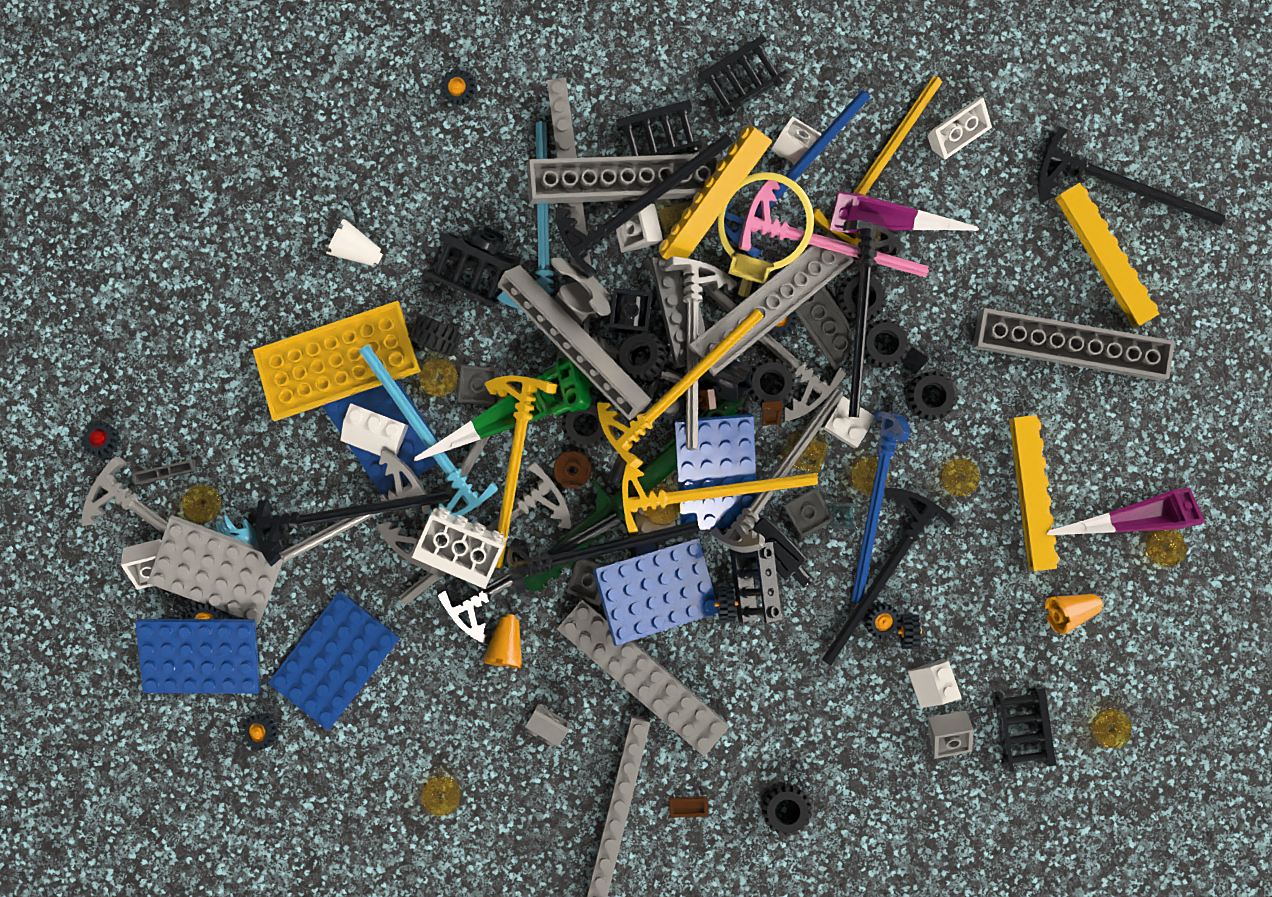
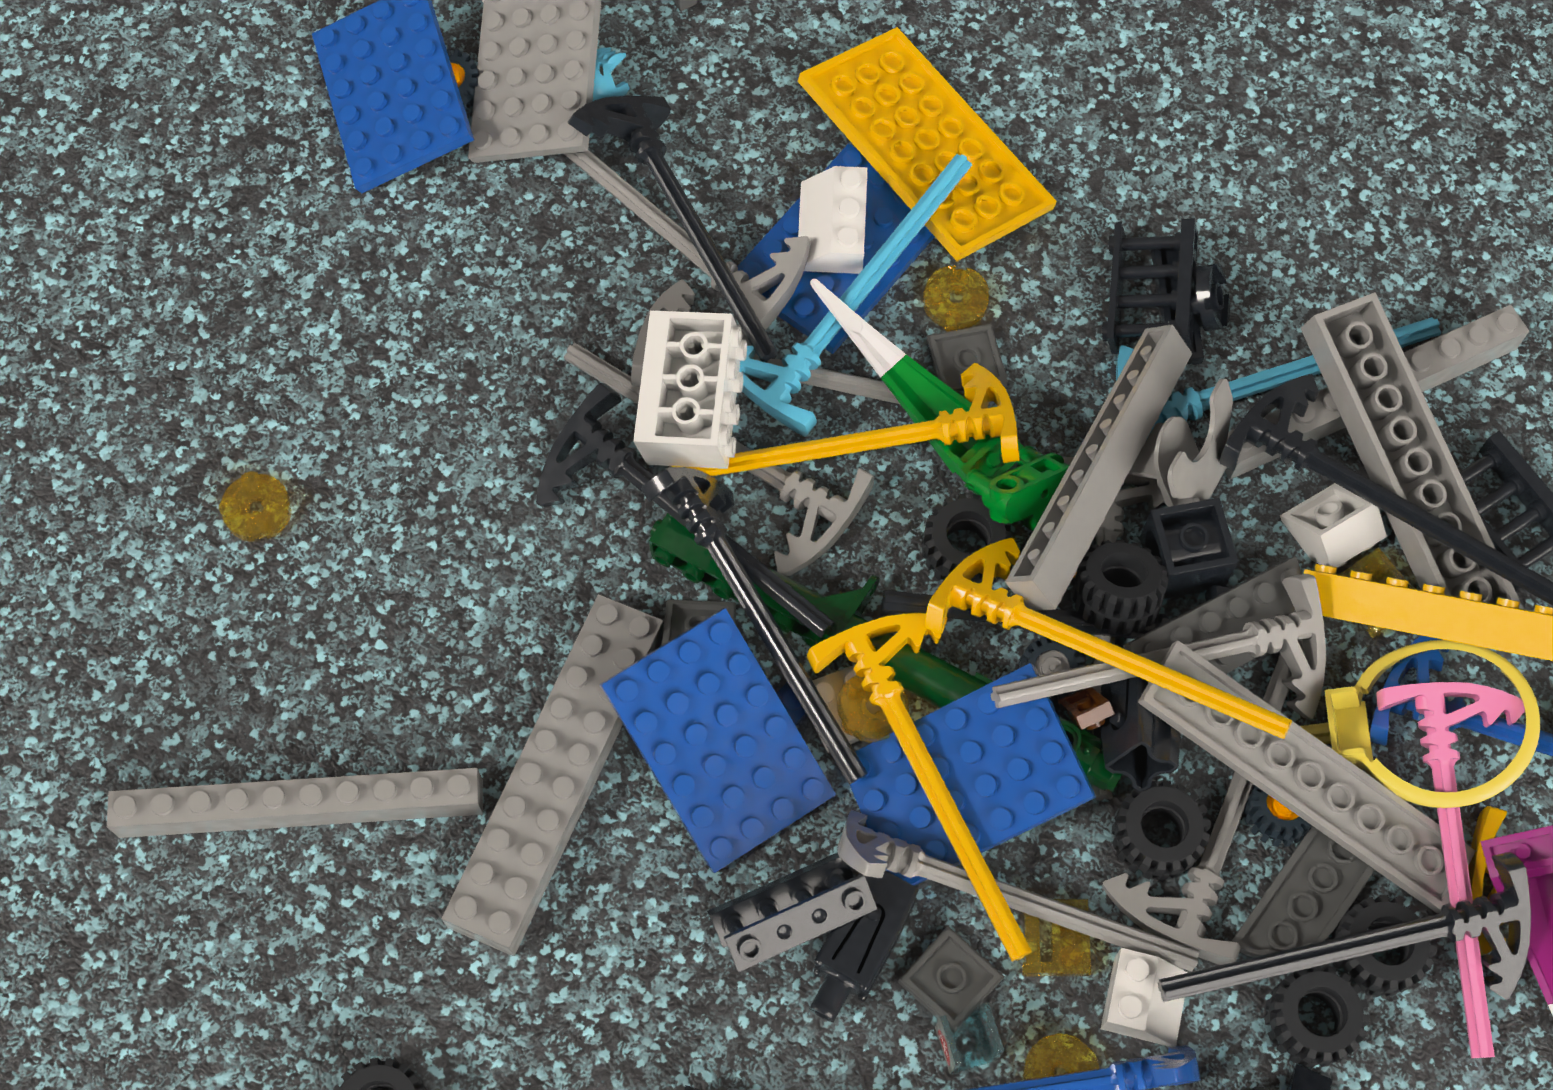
camera: 75 degrees right, 20 degrees down
(193, 498) = (633, 16): clear yellow plate -> none
(260, 731) = (294, 205): black wheel -> none
(334, 660) = (440, 282): blue plate -> none
(354, 245) = (1117, 109): white cone -> none
(435, 335) = (1024, 262): black tyre -> none
(458, 87) = (1433, 187): black wheel -> none
(505, 644) = (545, 525): light orange cone -> none
(548, 726) = (424, 635): light grey slope -> none
(576, 479) = (886, 531): reddish brown plate -> none
(688, 806) = (339, 931): reddish brown tile -> none
(726, 604) = (734, 874): black wheel -> none
(771, 413) = (1108, 844): reddish brown tile -> none

